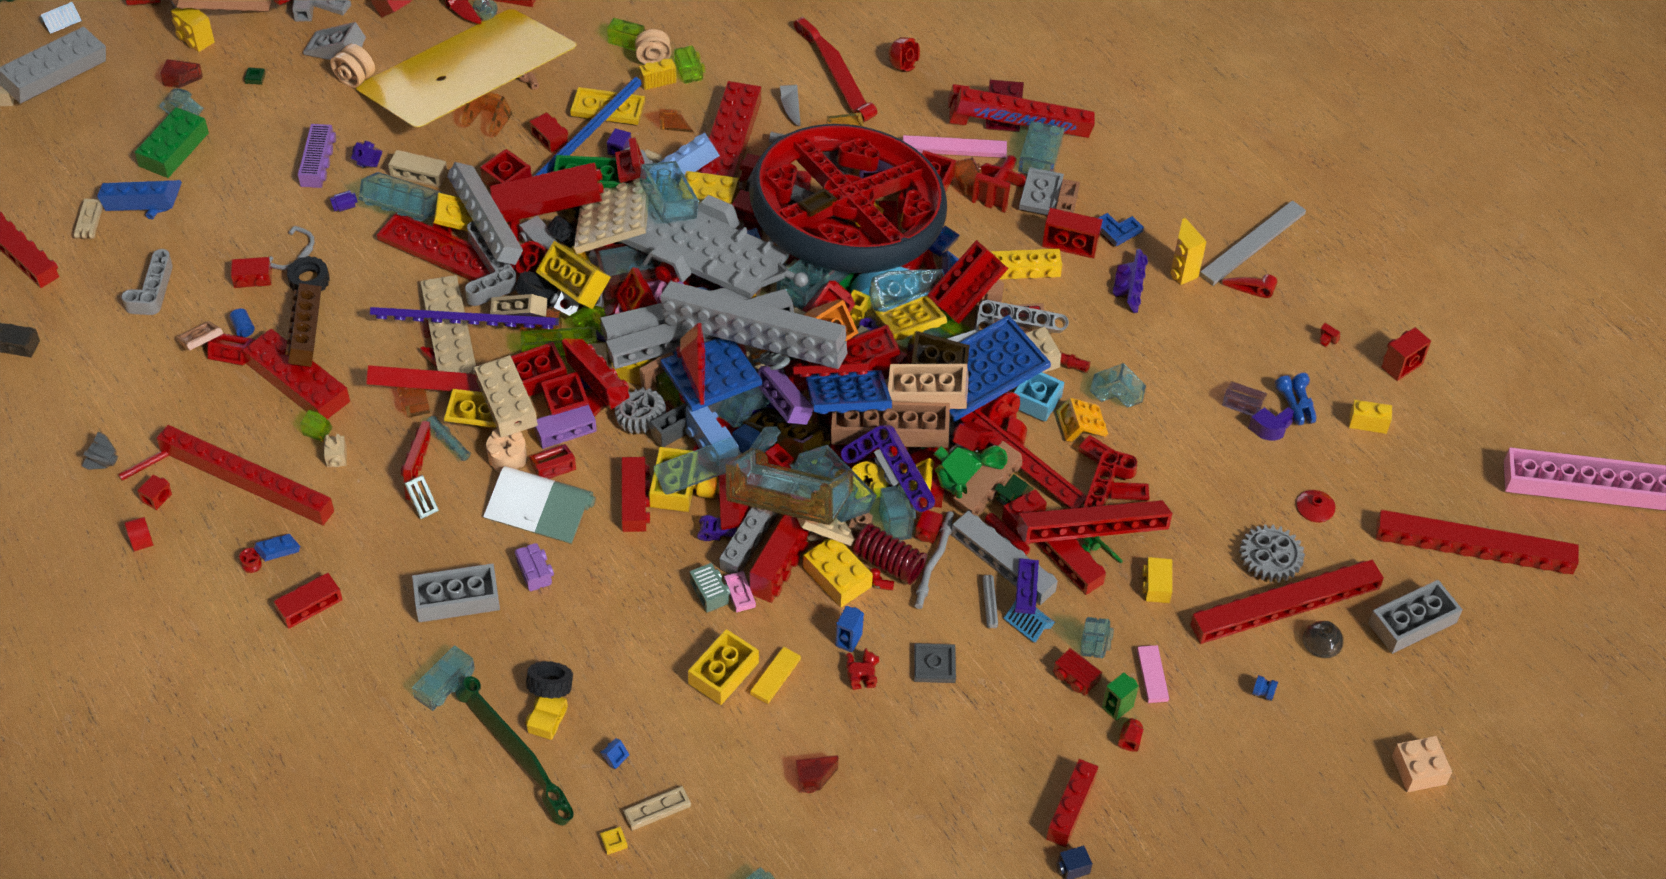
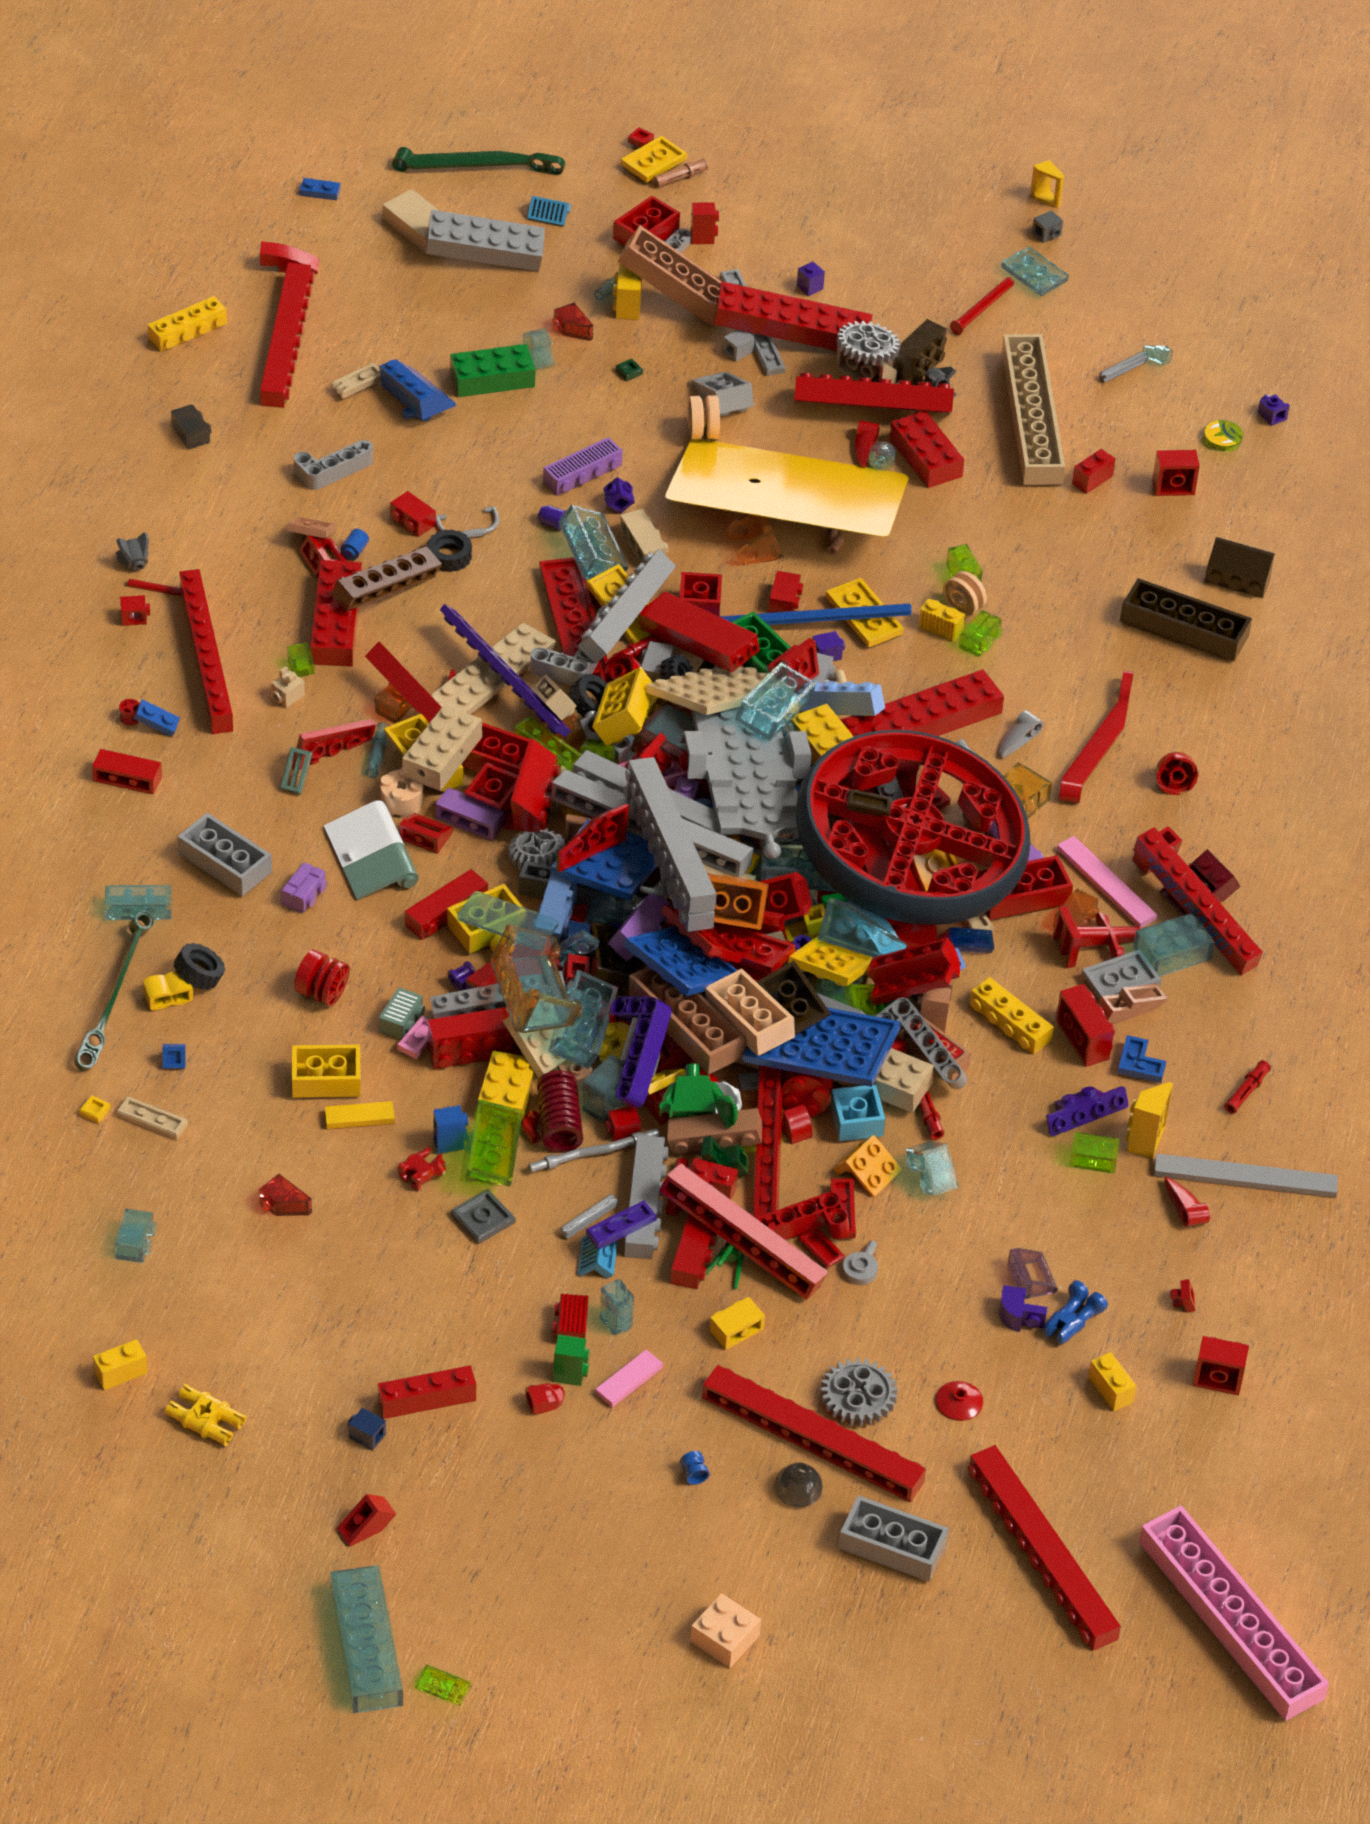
camera: 50 degrees right, 5 degrees down
(139, 534) = (84, 629): red brick -> none
(169, 34) = (606, 289): none -> clear light blue pin
(641, 610) = (321, 977): none -> red wheel
(673, 121) = (901, 665): clear orange slope -> none
(888, 615) = (491, 1145): none -> clear neon green windscreen
(972, 436) = (742, 1085): red brick -> none
(1162, 481) = (861, 1267): none -> light grey piece
(1174, 300) = (1094, 1152): none -> clear neon green brick
(1183, 188) = (1252, 1081): none -> red pin

